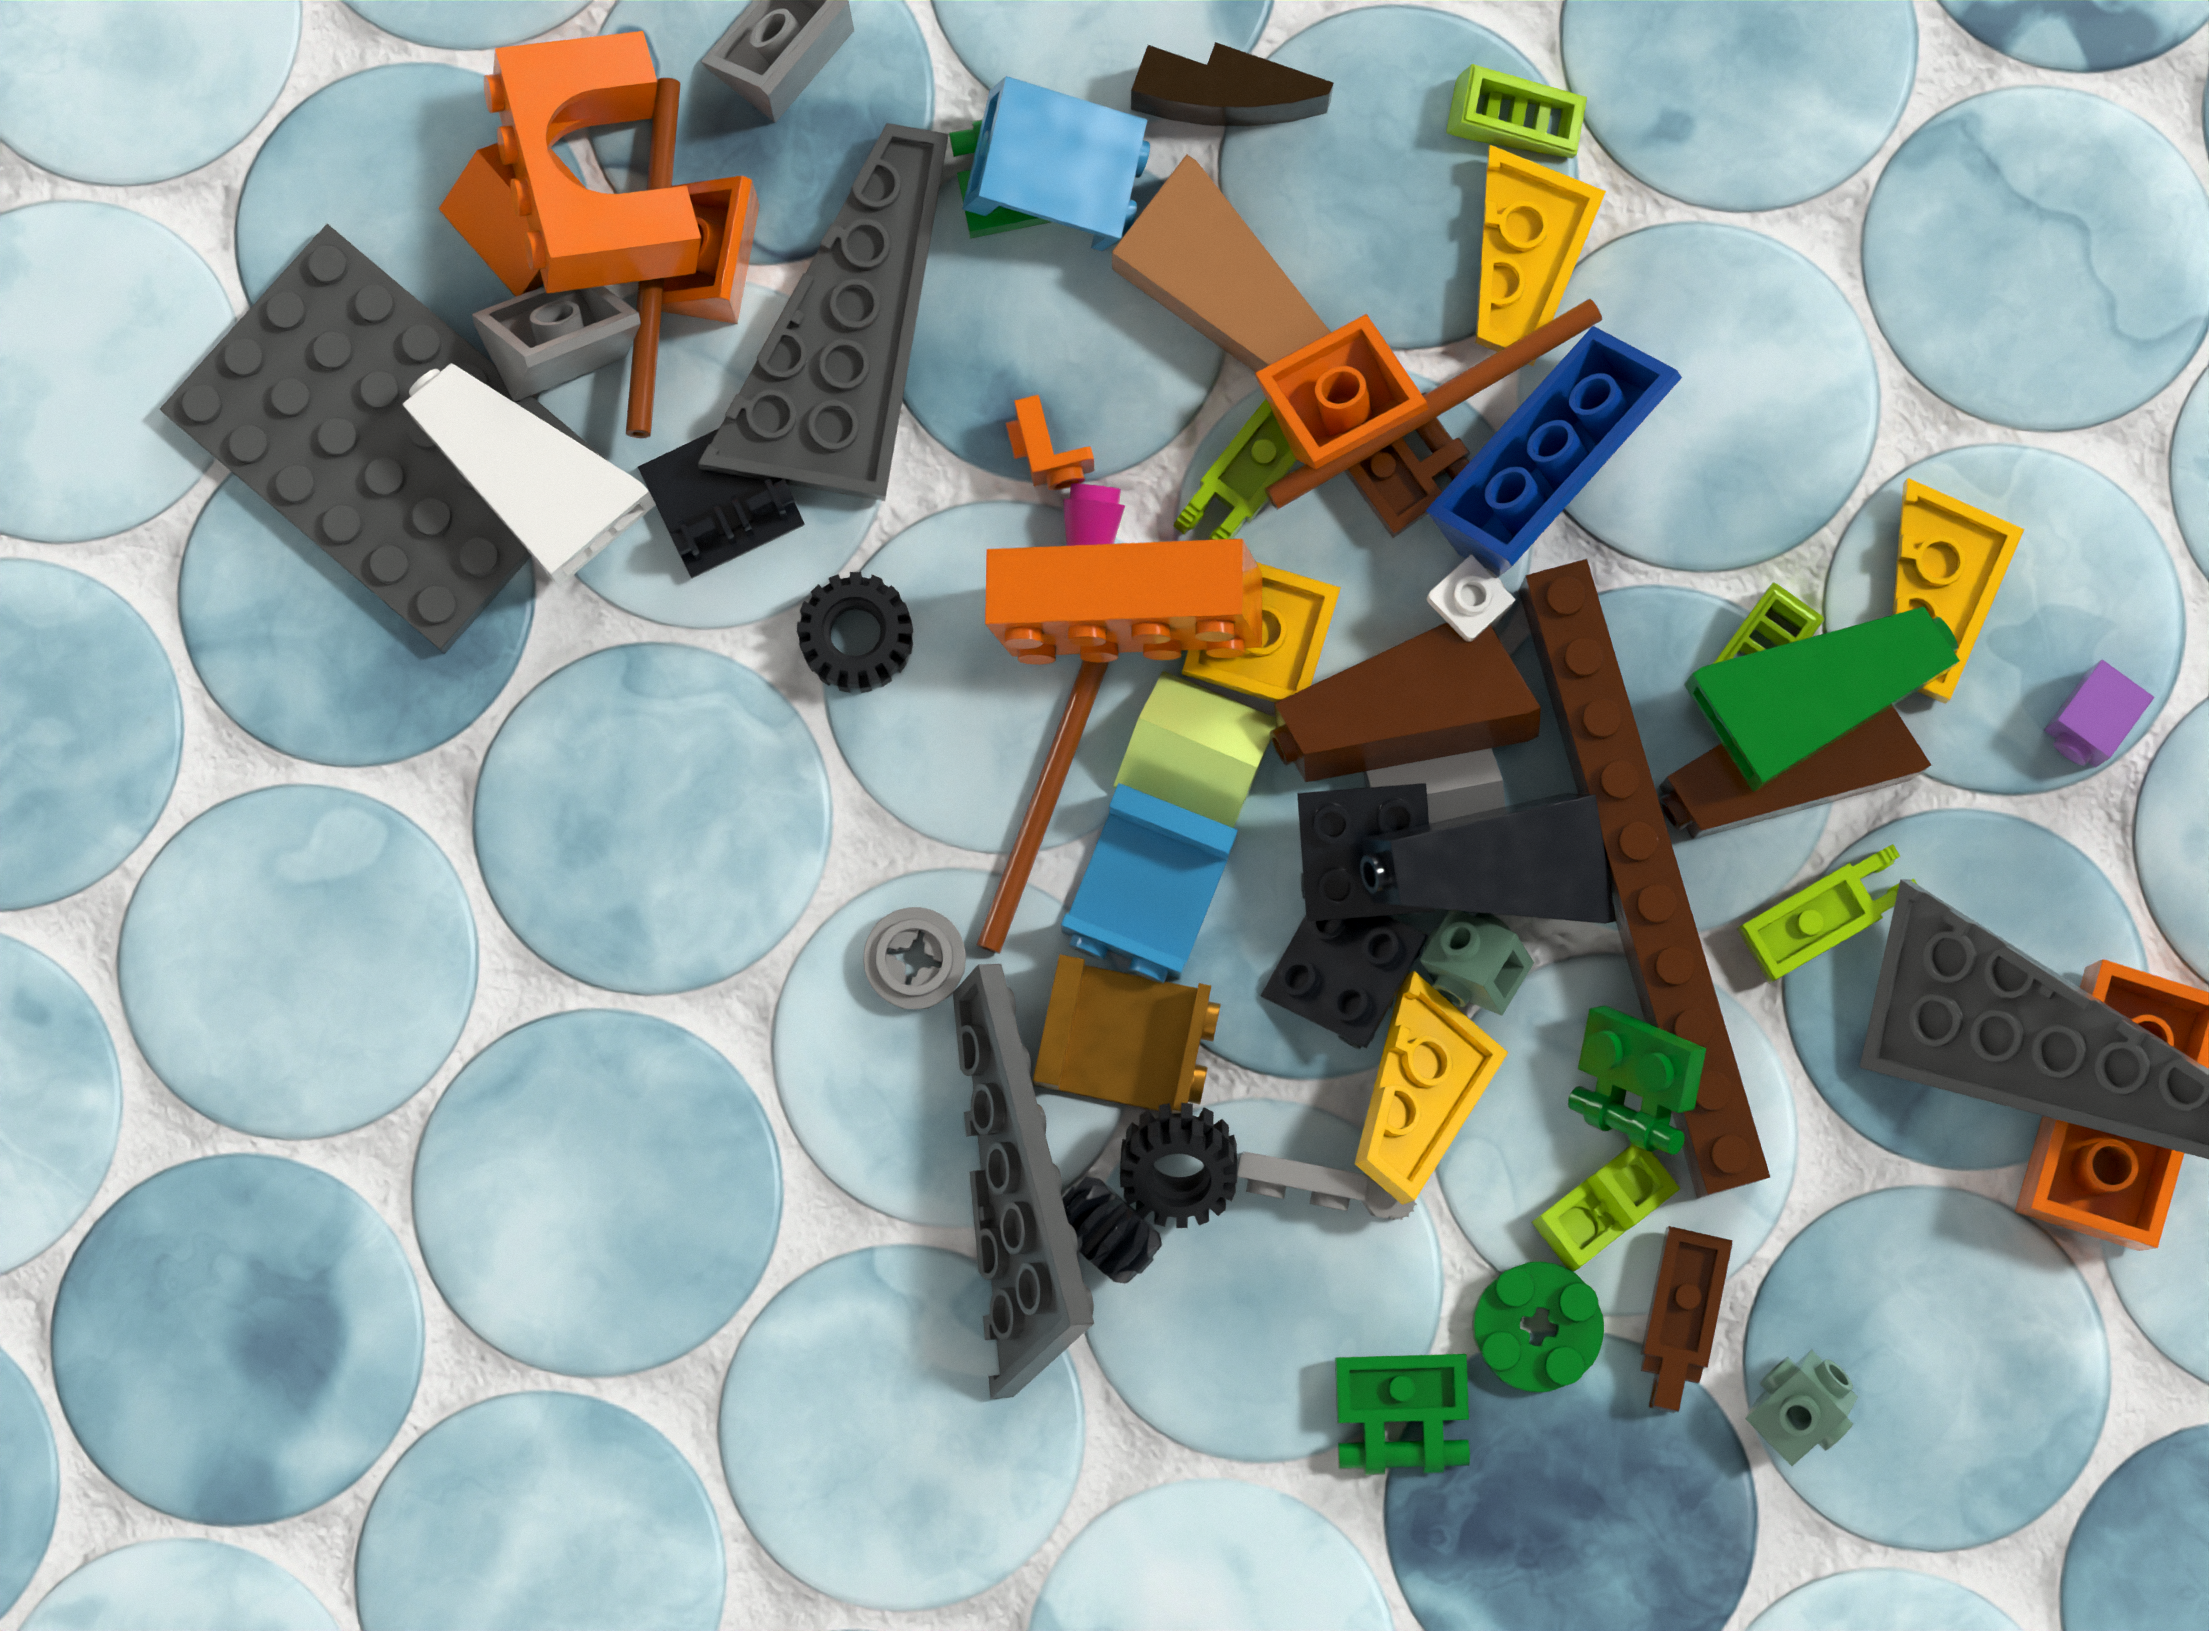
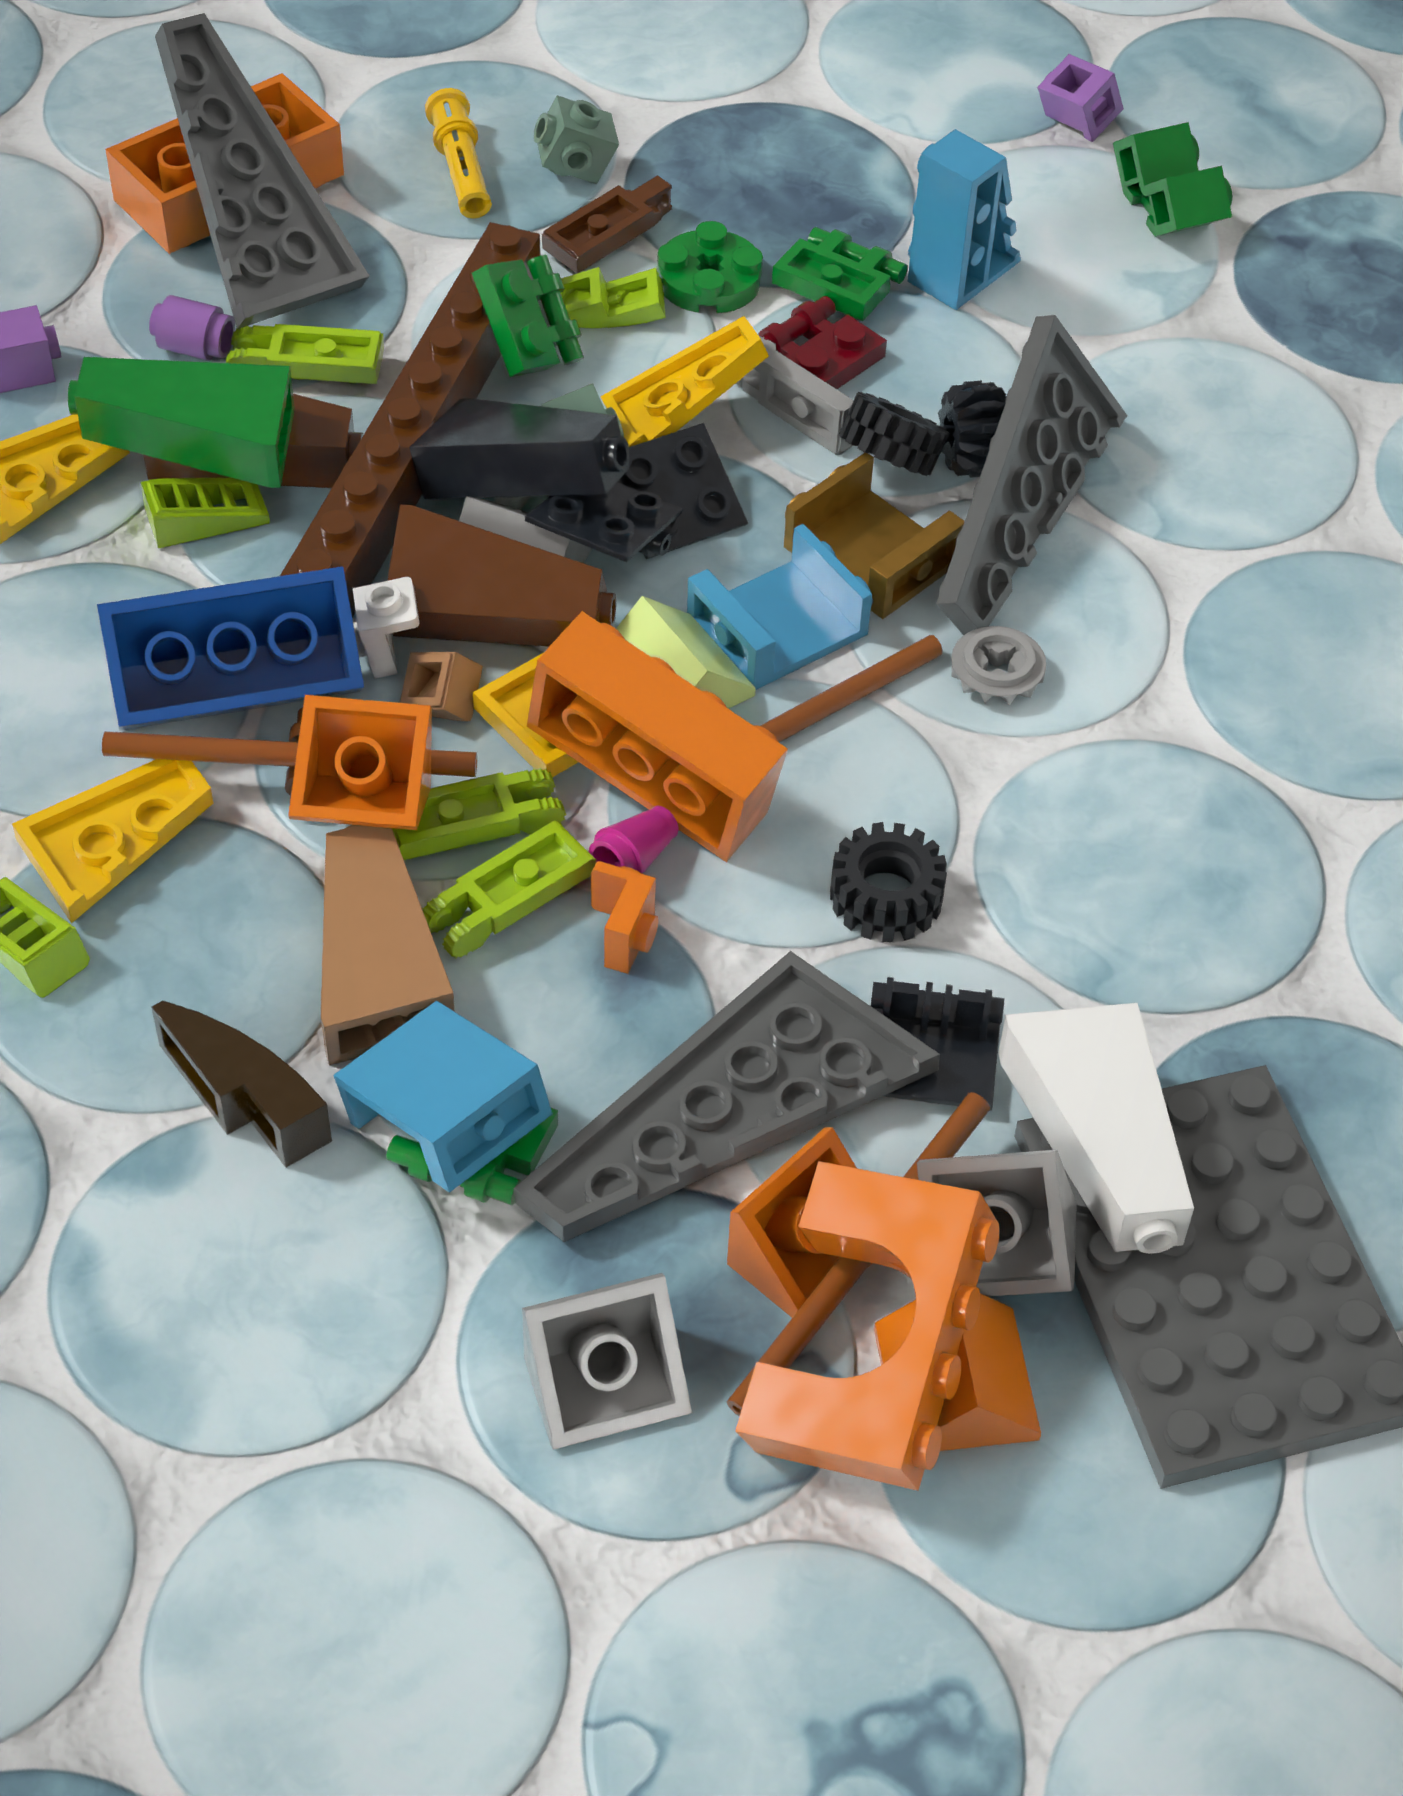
camera: 150 degrees left, 30 degrees down
(1160, 421) = (508, 887): none -> lime hinge
(1295, 1525) = (961, 220): none -> dark azure wedge
(1332, 1273) = (833, 350): none -> dark red plate
(1382, 590) = (443, 682): none -> medium nougat slope
(1939, 1340) = (469, 189): none -> yellow pin
(1961, 862) = (191, 328): none -> medium lavender brick

